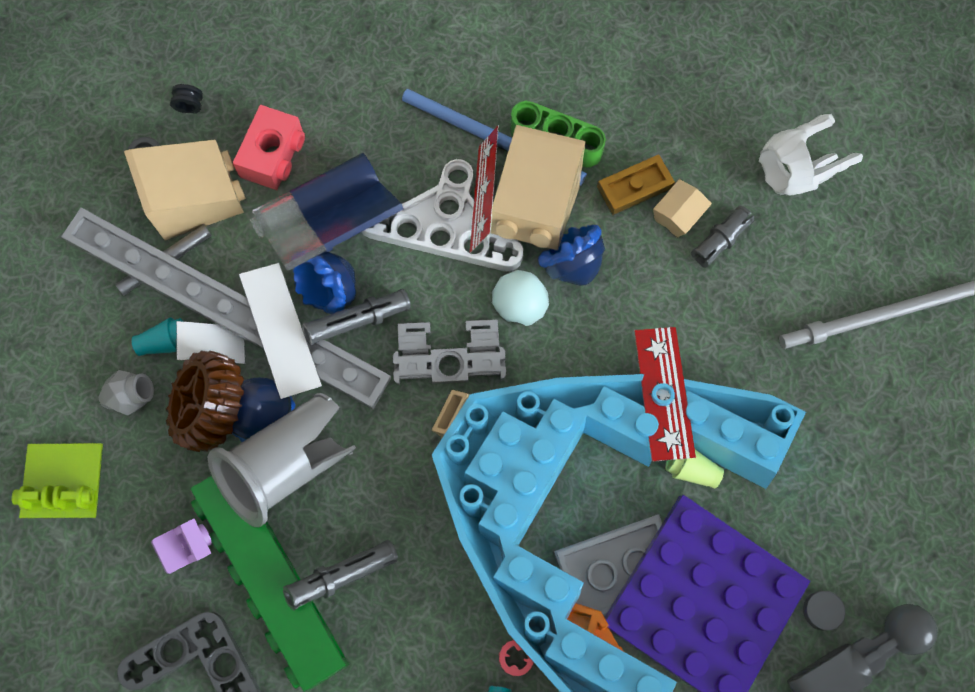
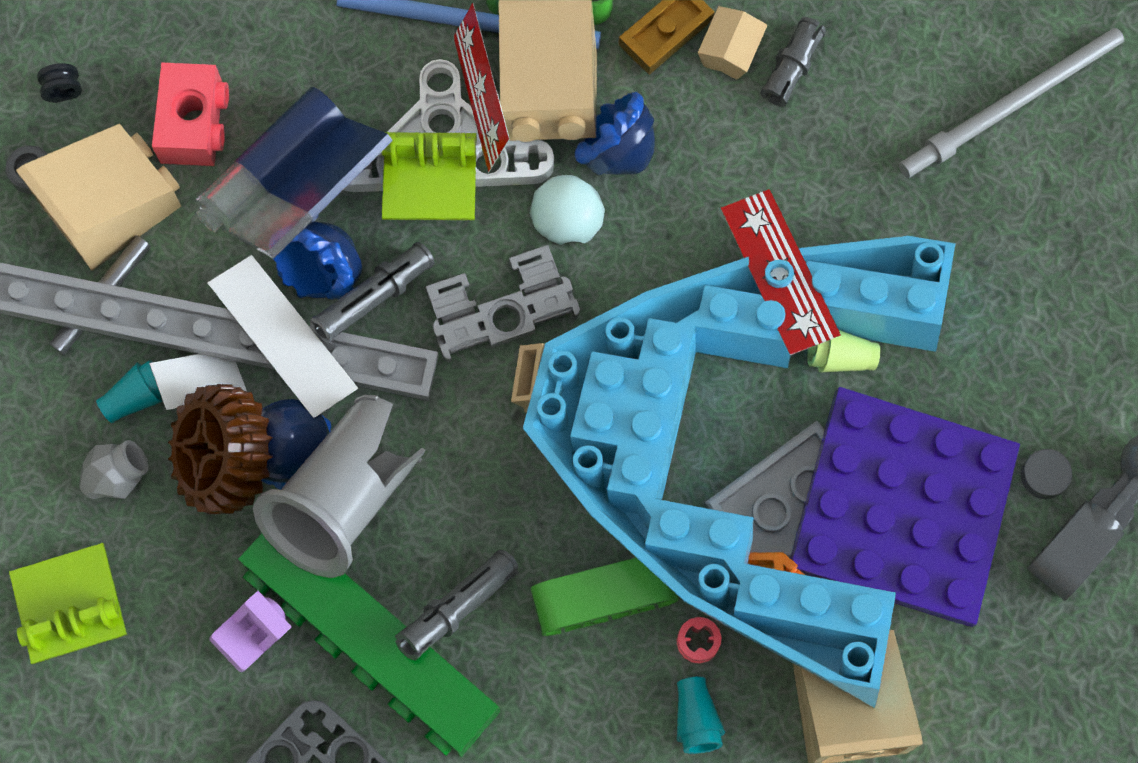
camera: 15 degrees left, 0 degrees up
(426, 243) = (429, 176): none -> lime hinge
(445, 599) = (597, 593): none -> bright green beam

